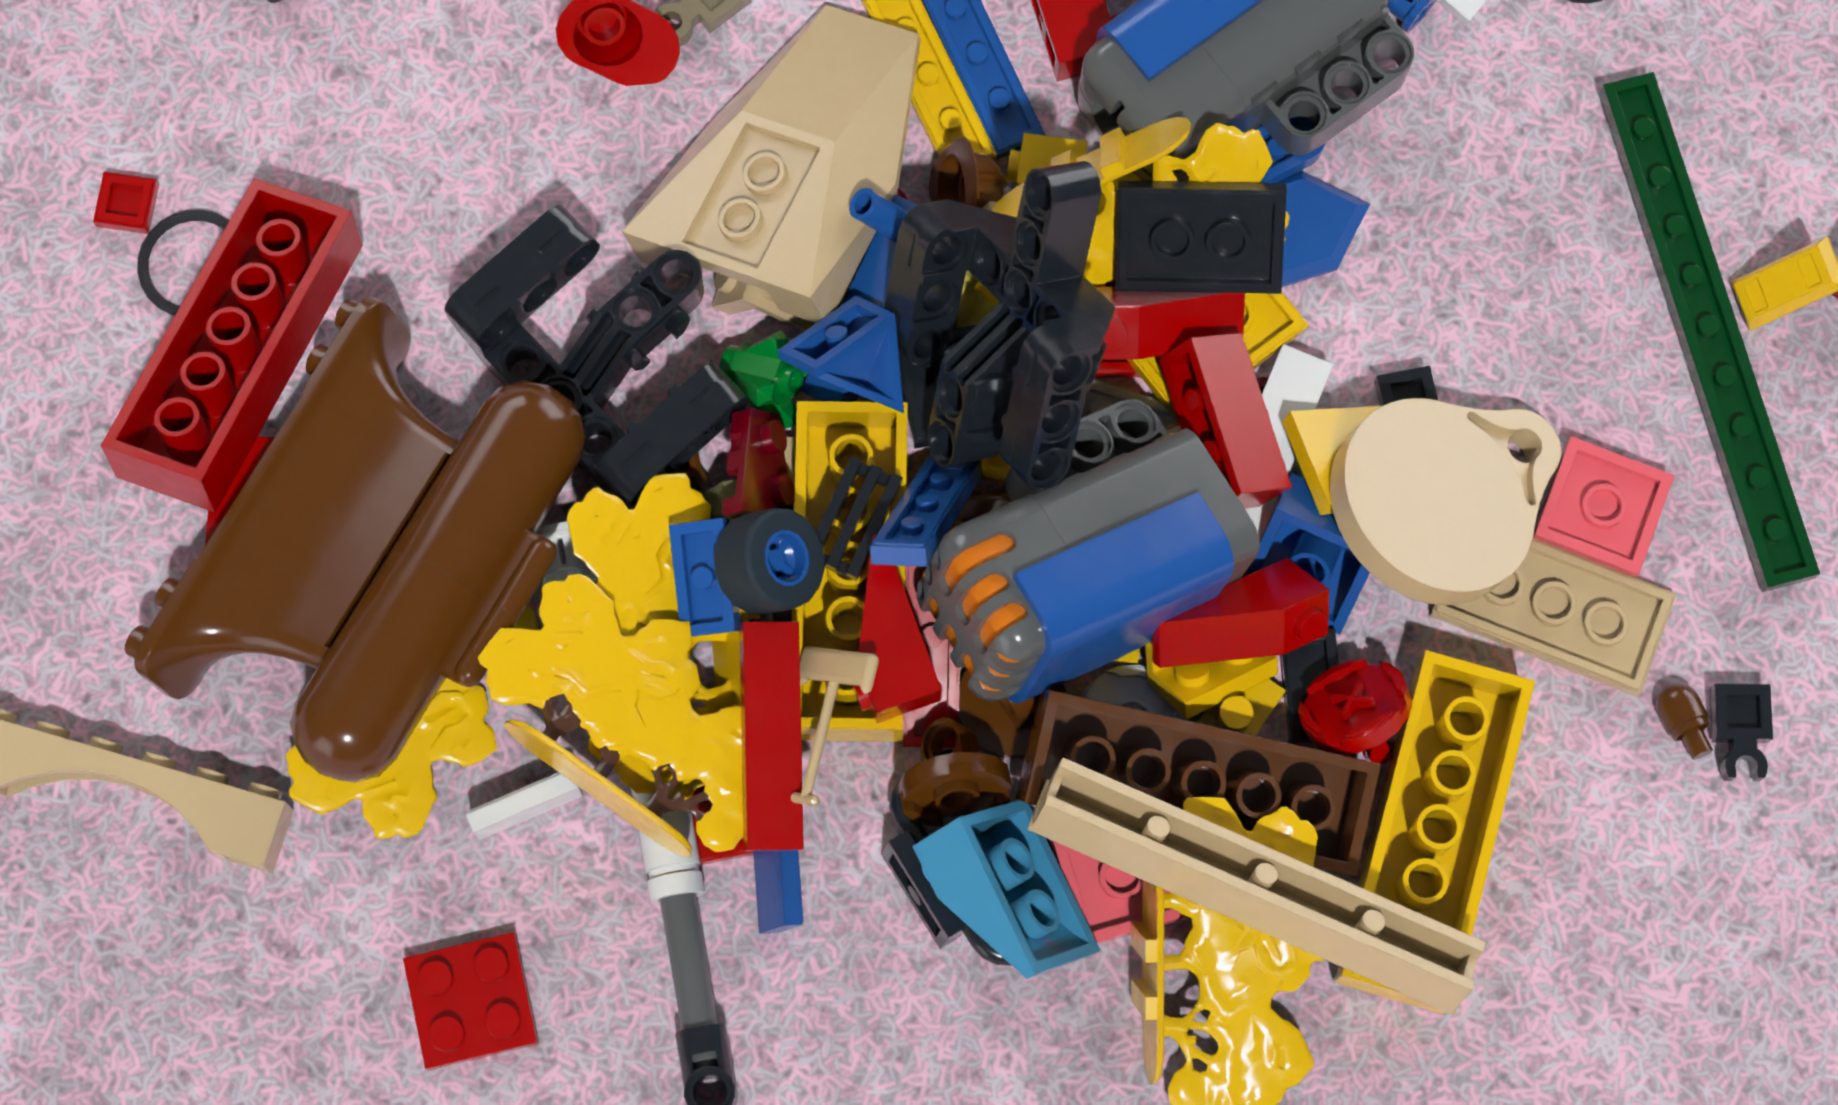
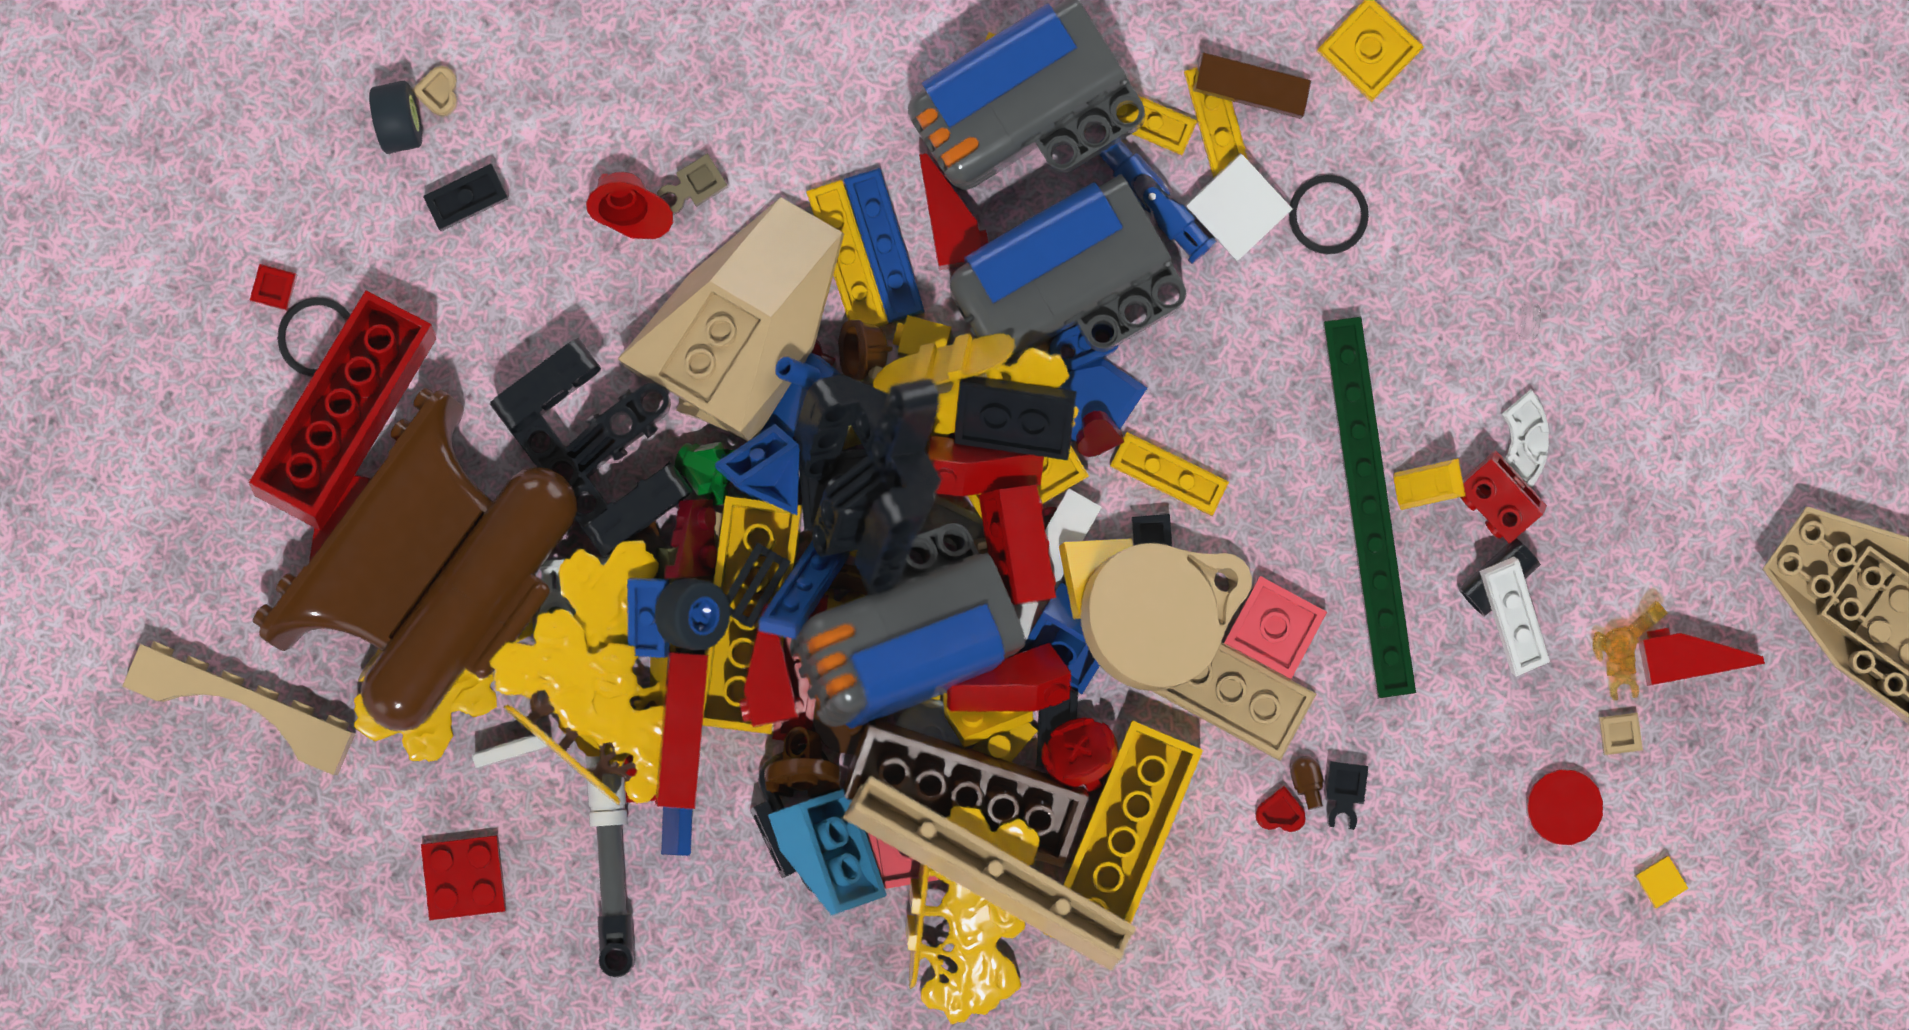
camera: 10 degrees right, 10 degrees up
(387, 52) = (465, 197): none -> black plate
(835, 668) = (731, 693): tan piece -> none
(1311, 269) = (1097, 434): none -> dark red tile
(1418, 316) = (1169, 474): none -> yellow tile
(1652, 767) = (1280, 811): none -> red tile

